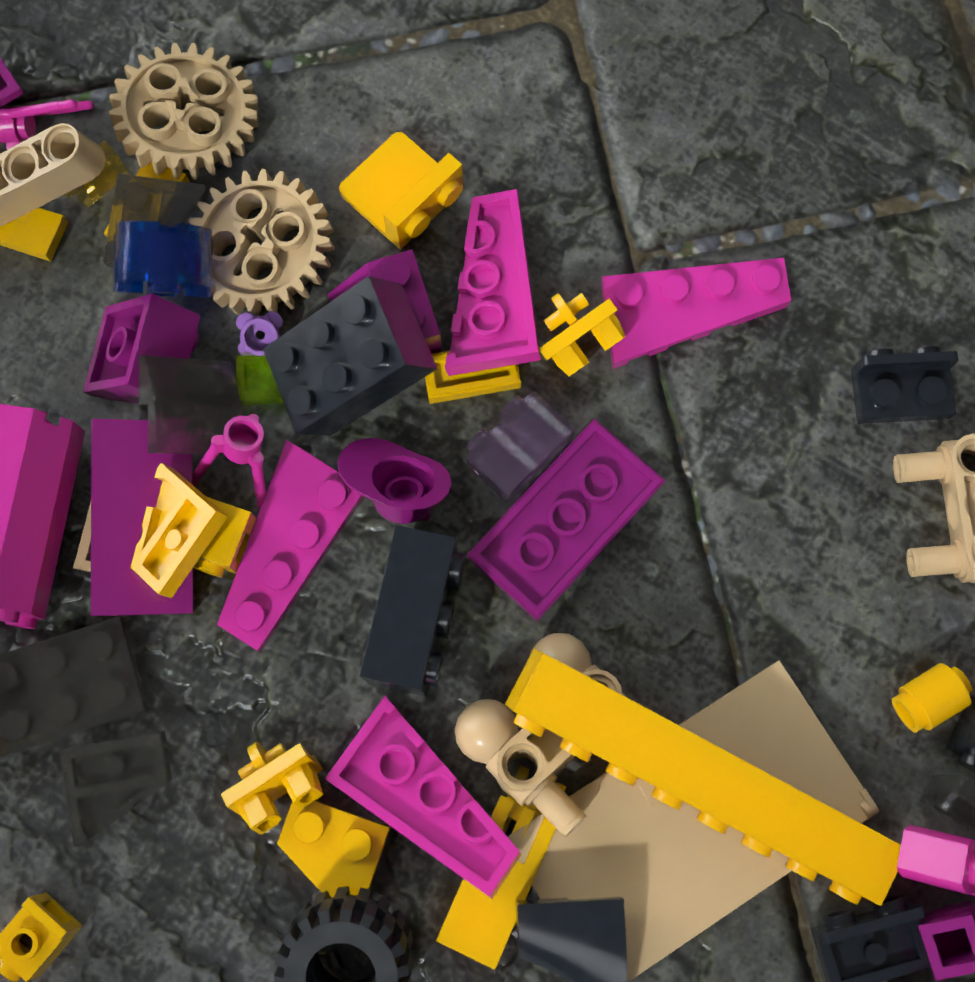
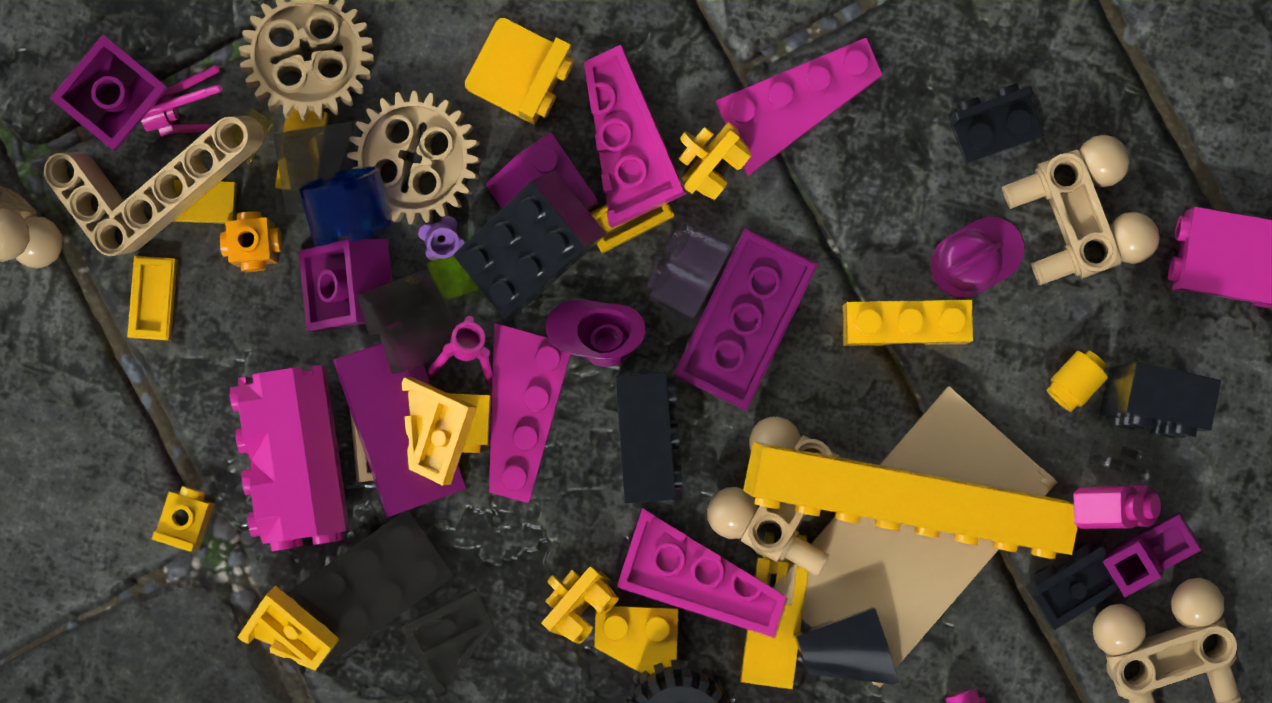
camera: 15 degrees left, 10 degrees up
(54, 277) = (263, 250): none -> light orange brick
(773, 576) = (907, 322): none -> yellow arch
(846, 527) = (977, 257): none -> magenta piece

